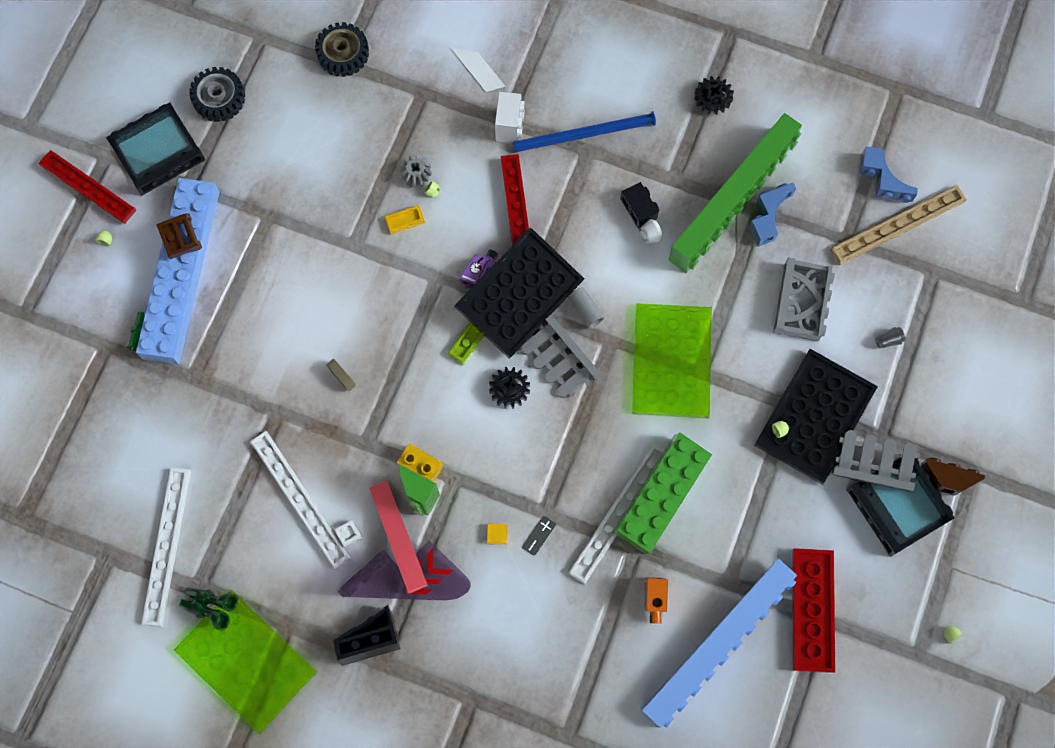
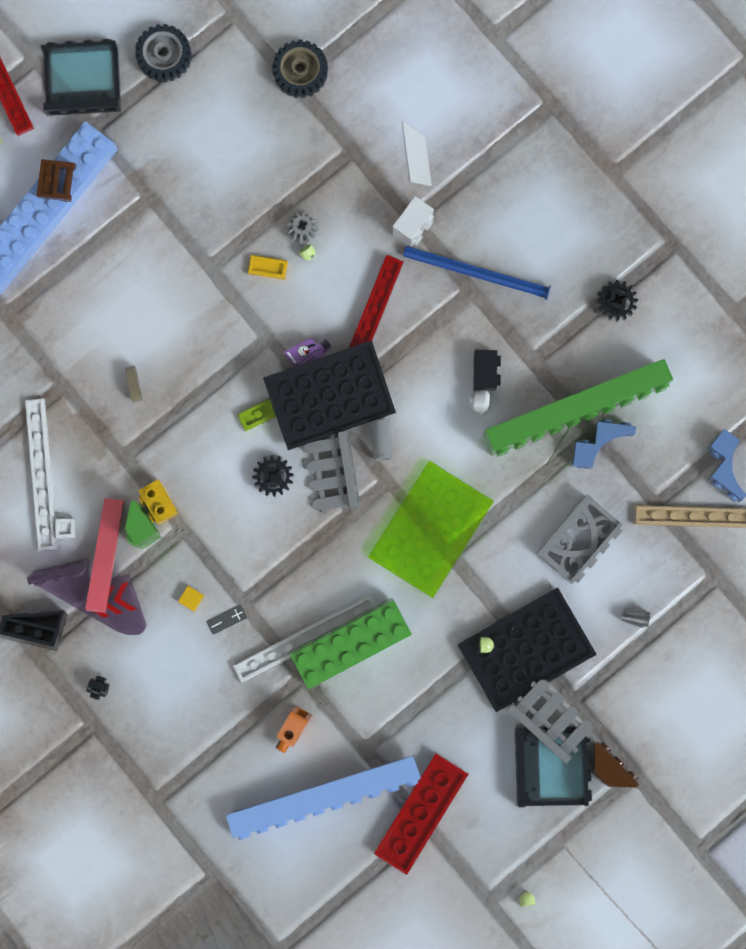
camera: 30 degrees right, 10 degrees up
(457, 660) = (98, 687): none -> black gear

